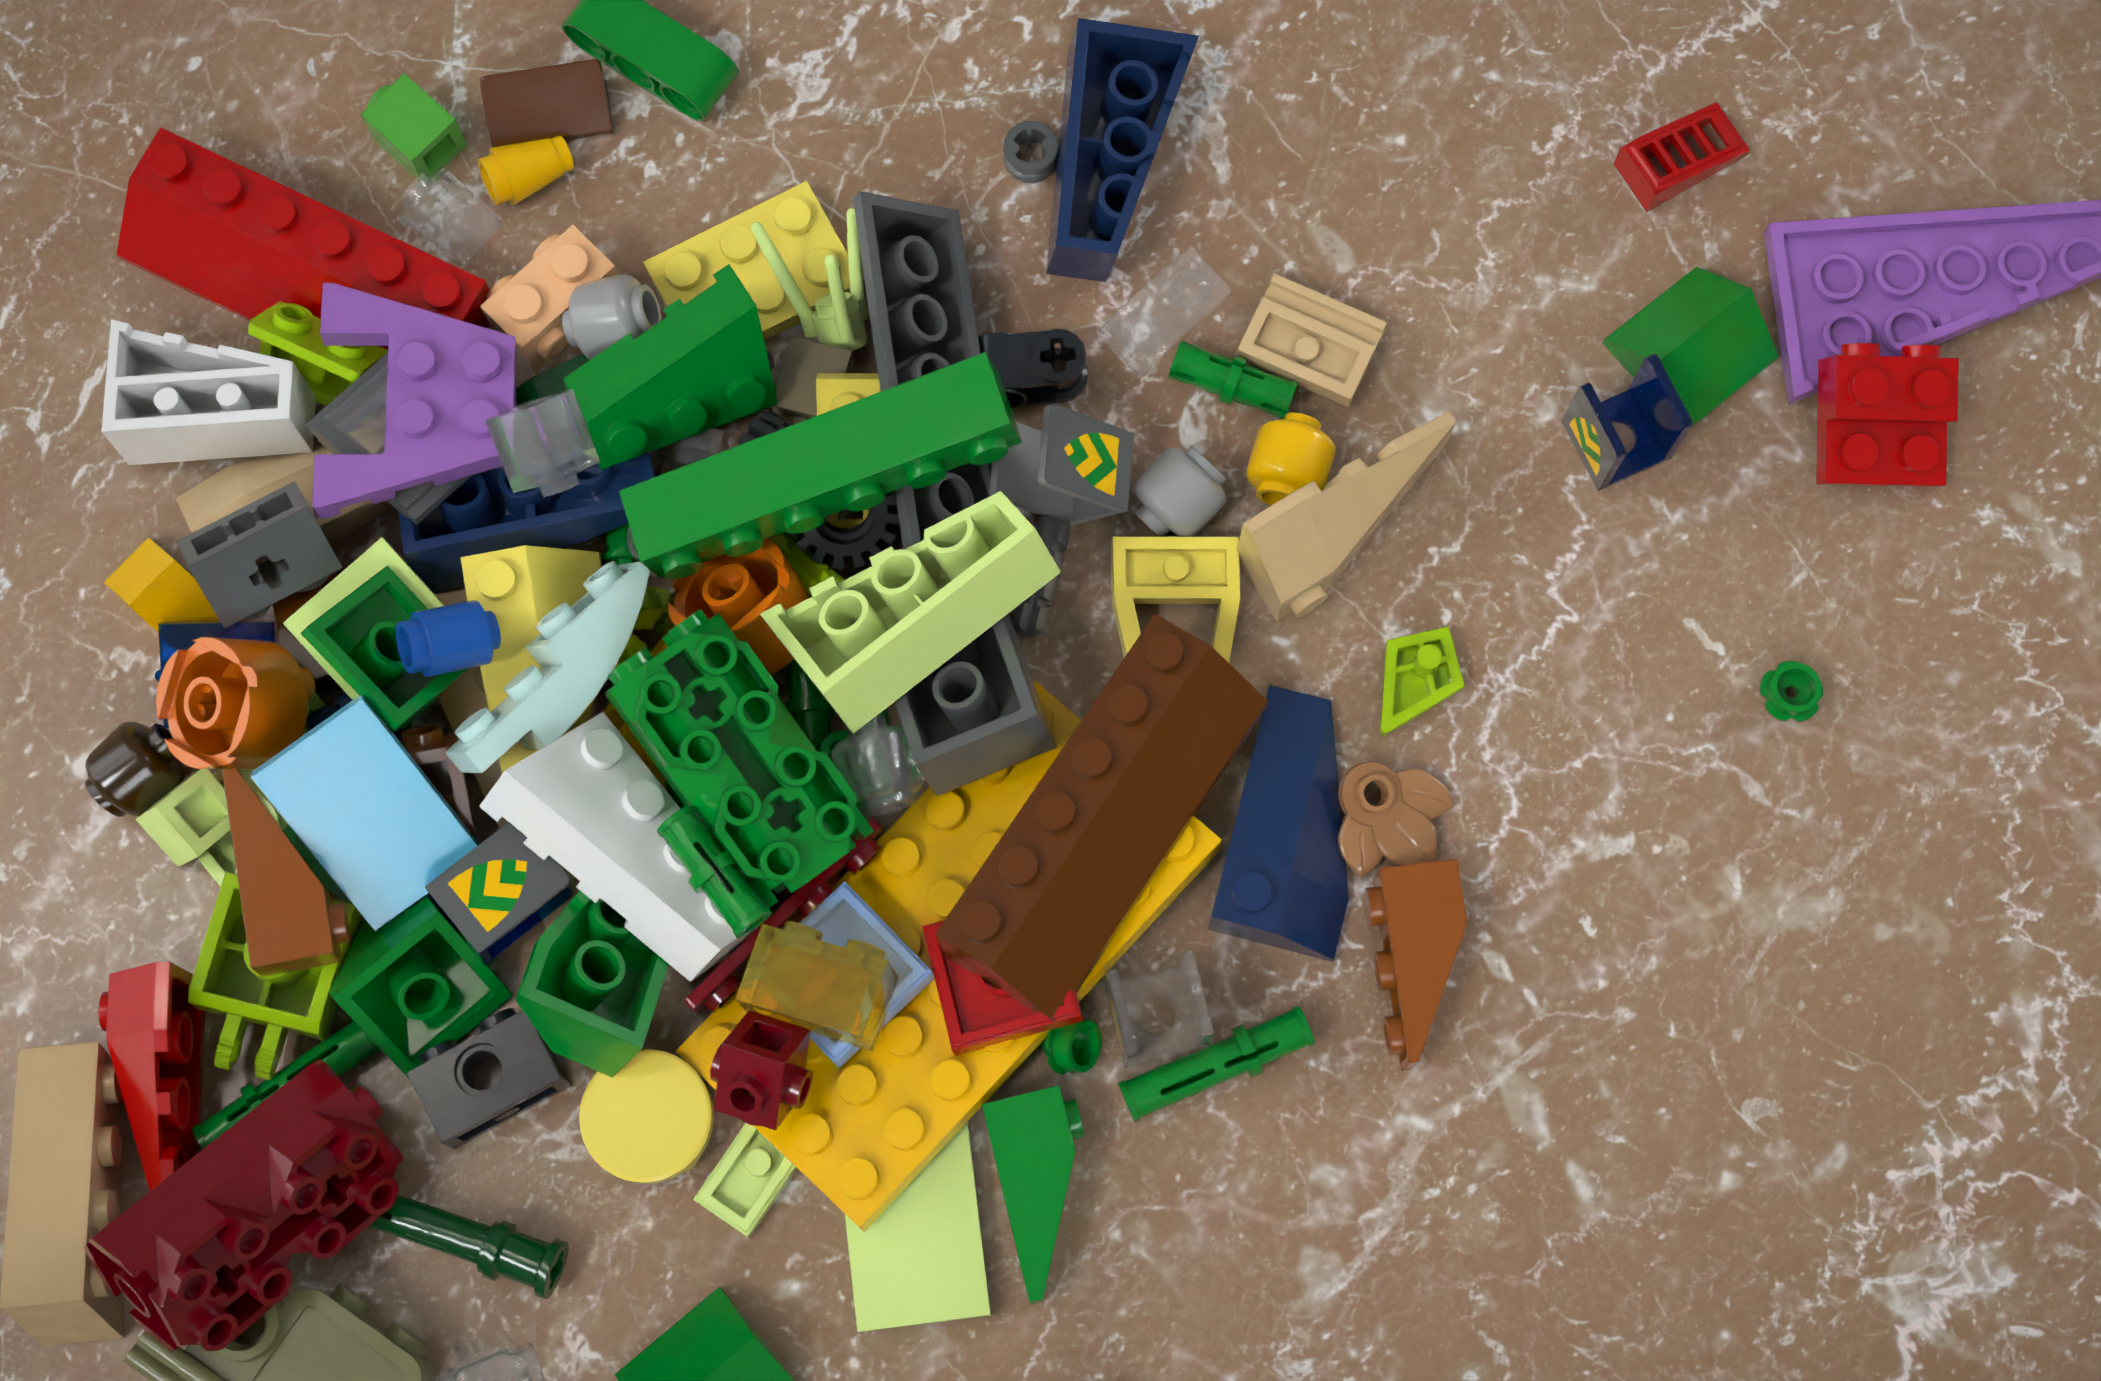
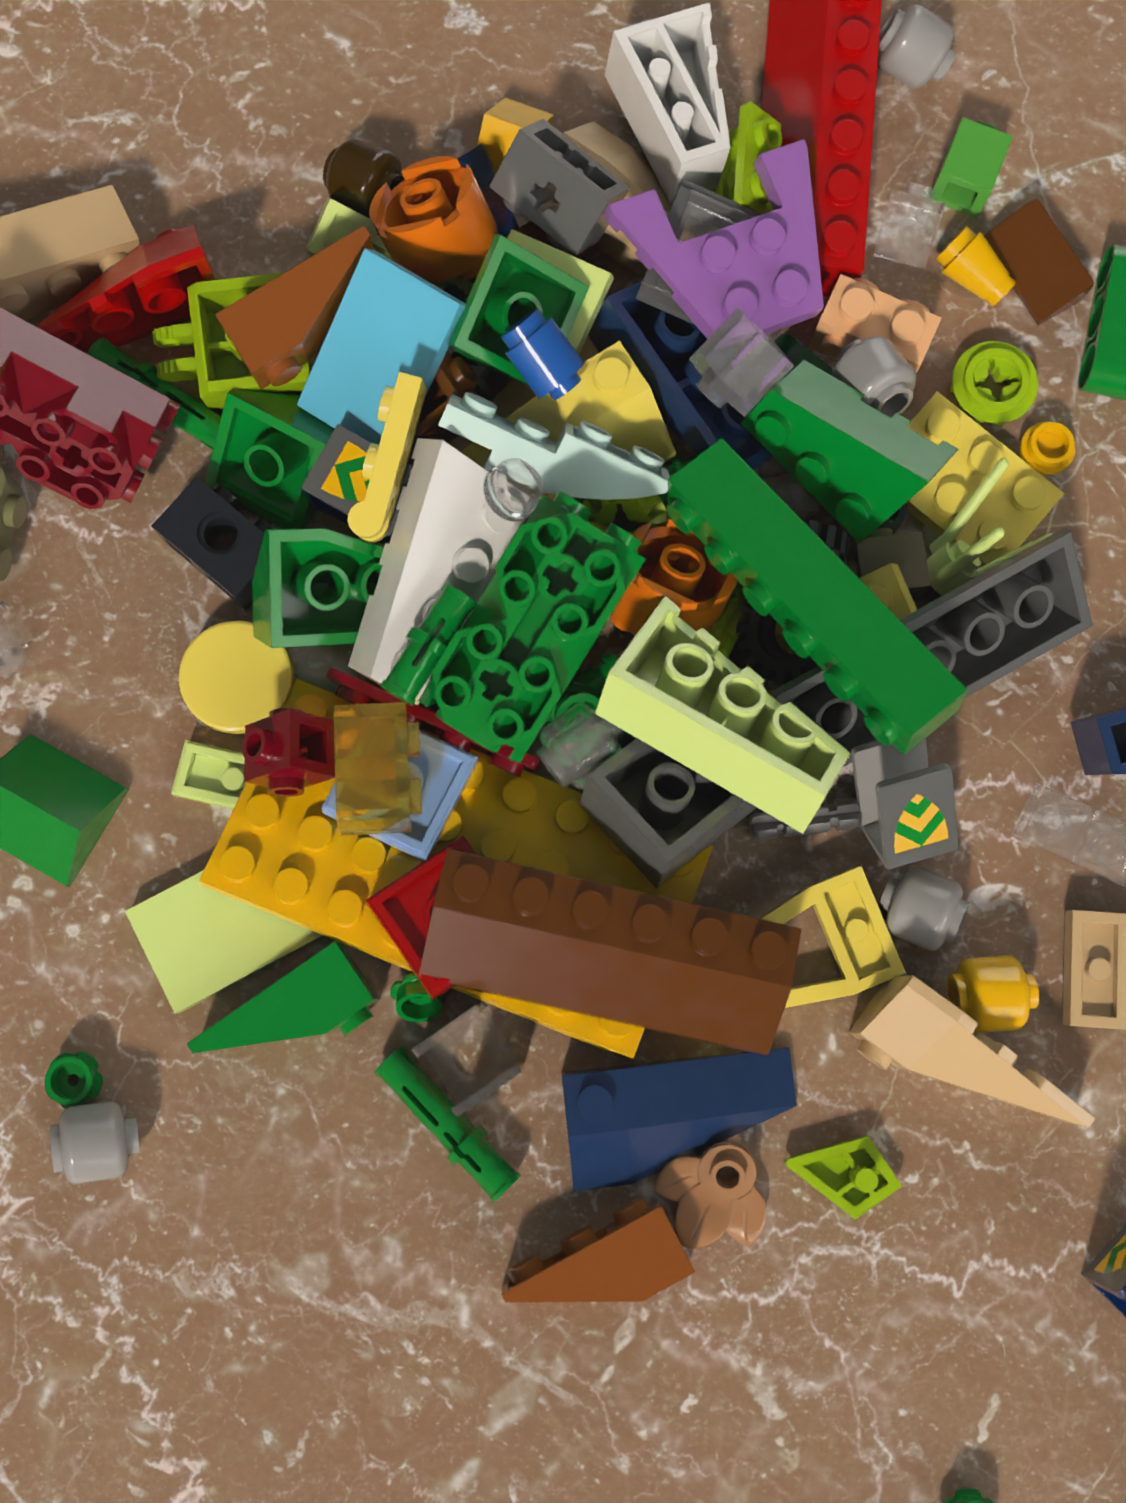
camera: 65 degrees right, 5 degrees up
(253, 127) = (915, 46): none -> light grey head
(494, 1248) = (91, 601): dark green pin -> none
(496, 844) = (387, 462): none -> light yellow plate
(585, 721) = (513, 489): none -> clear tile
(644, 181) = (1008, 366): none -> lime gear
(751, 177) = (1047, 447): none -> yellow plate
(1028, 365) = (983, 733): black piece -> none
(1232, 379) = (1044, 916): green pin -> none

